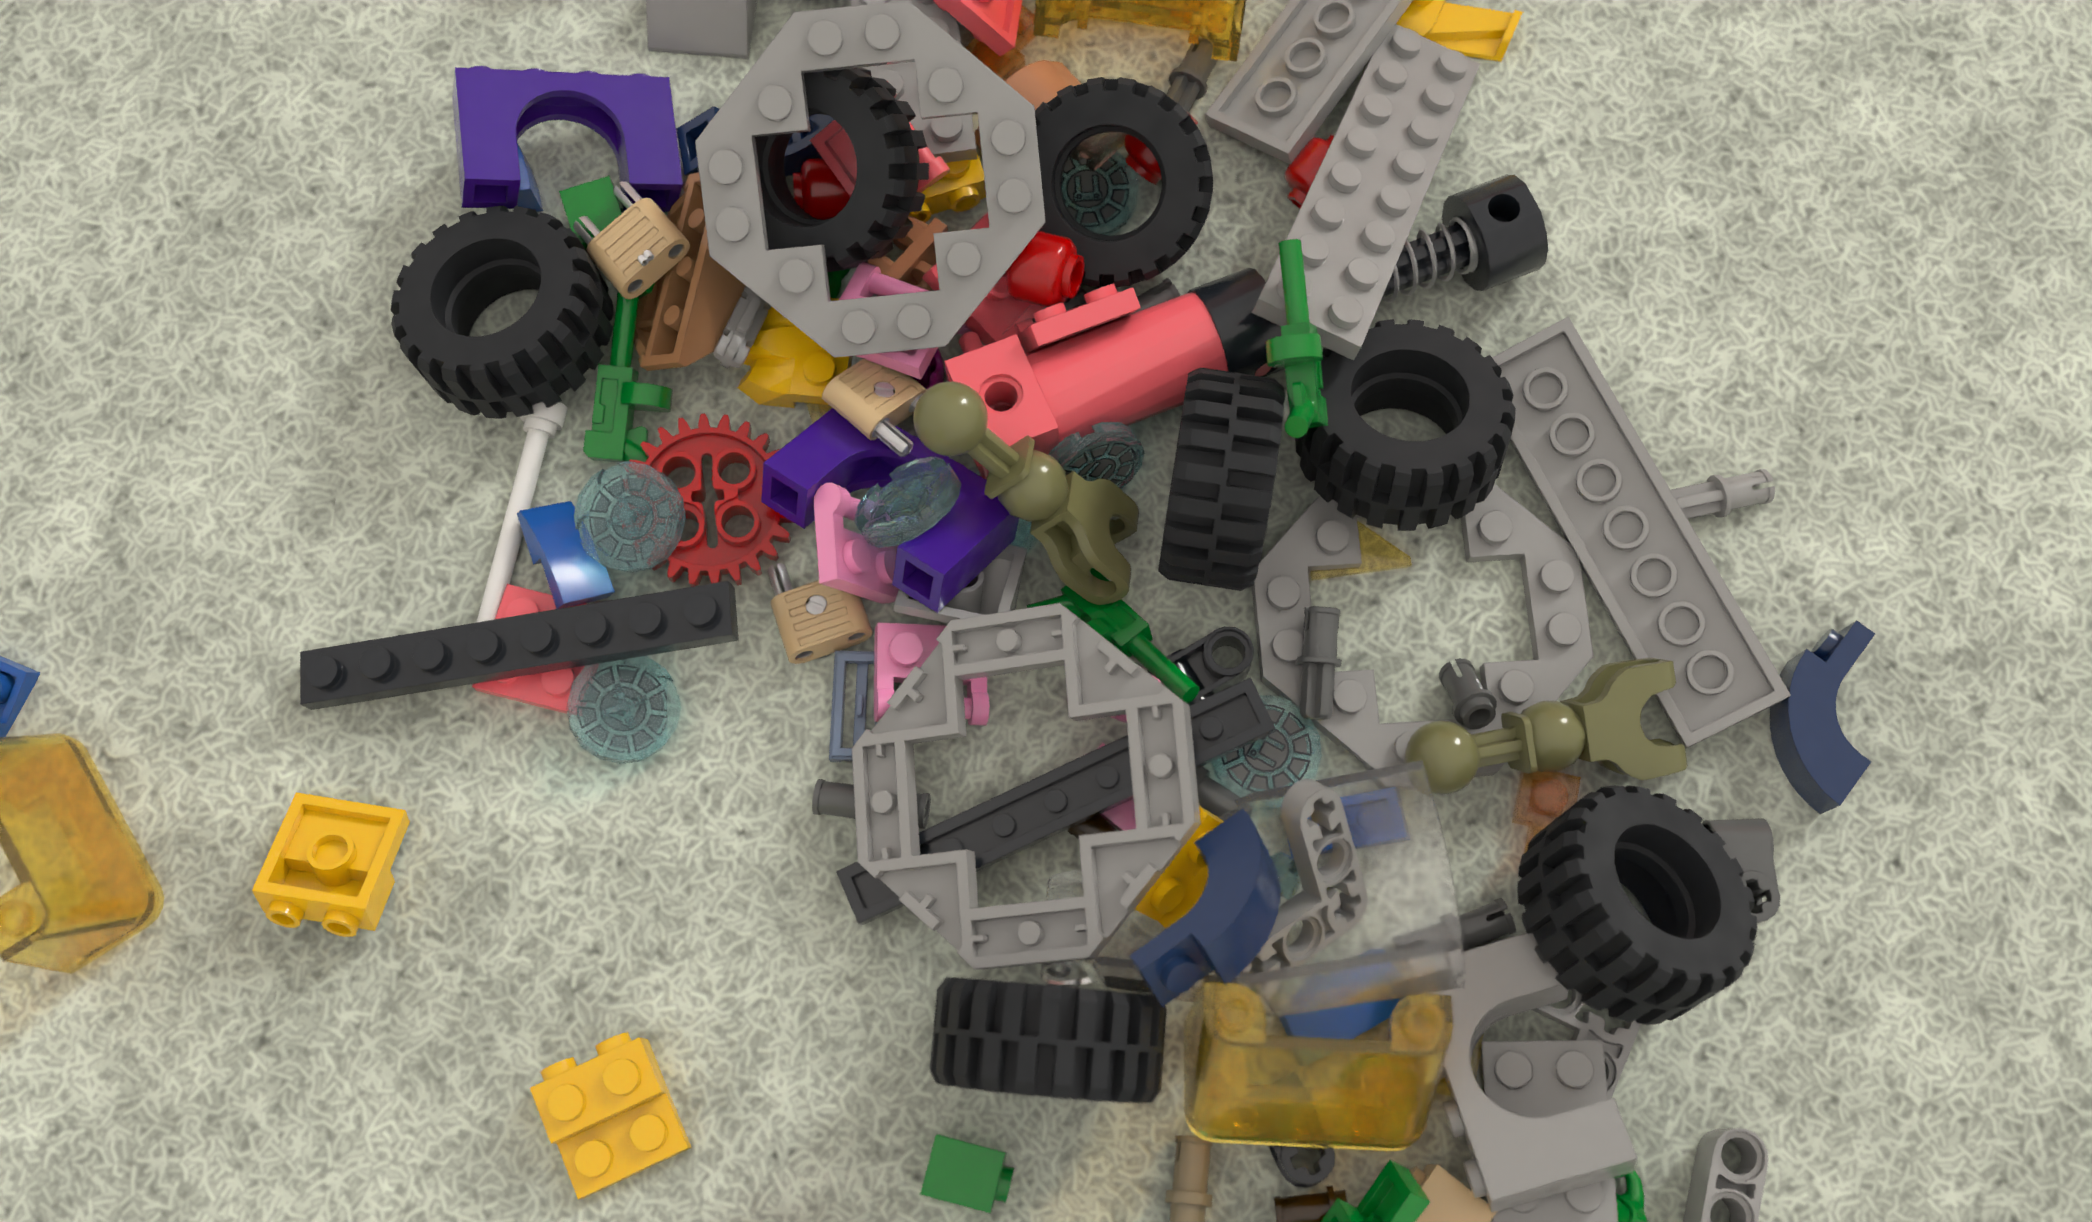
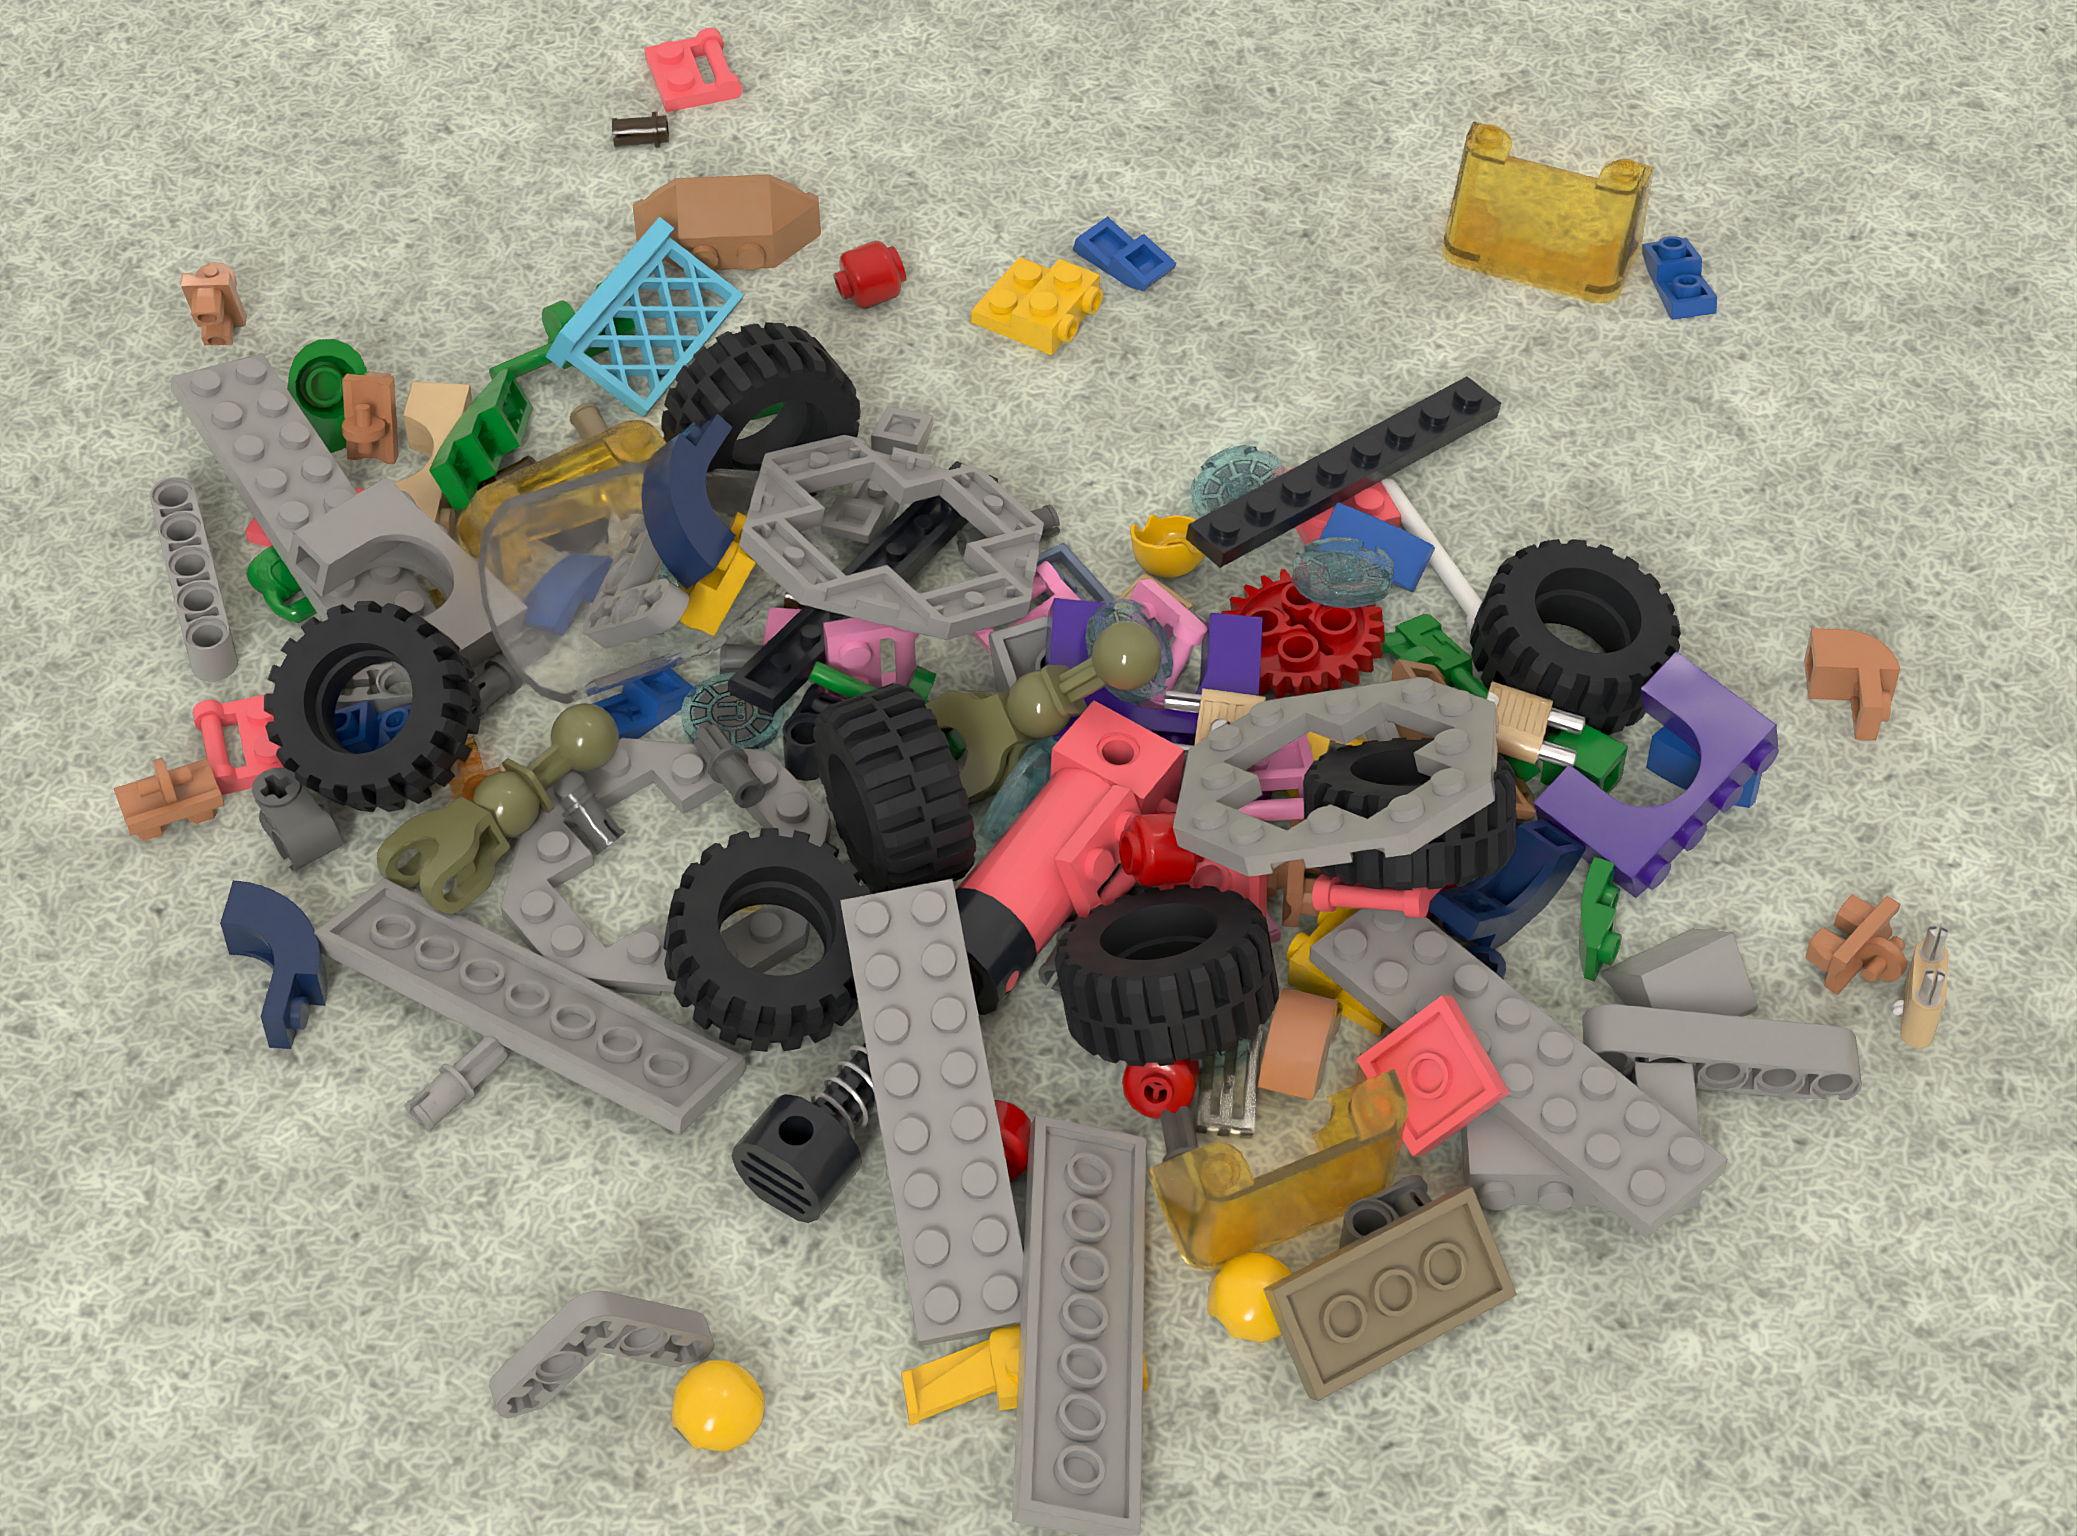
camera: 145 degrees right, 25 degrees down
(301, 163) = (1852, 668): none -> nougat brick
(331, 864) = (1351, 315): yellow plate -> none
(470, 1130) = (1130, 261): none -> blue slope
(728, 66) = (1597, 933): none -> green slope
(733, 670) = (1163, 546): none -> yellow hair
(910, 983) = (867, 507): none -> light grey slope
(1298, 347) = (879, 844): green piece -> none
(1654, 105) = (717, 1406): none -> yellow hair
(1714, 1028) = (258, 751): none -> coral plate
(1741, 145) = (591, 1326): none -> light grey beam
(1853, 966) = (169, 797): none -> nougat hips

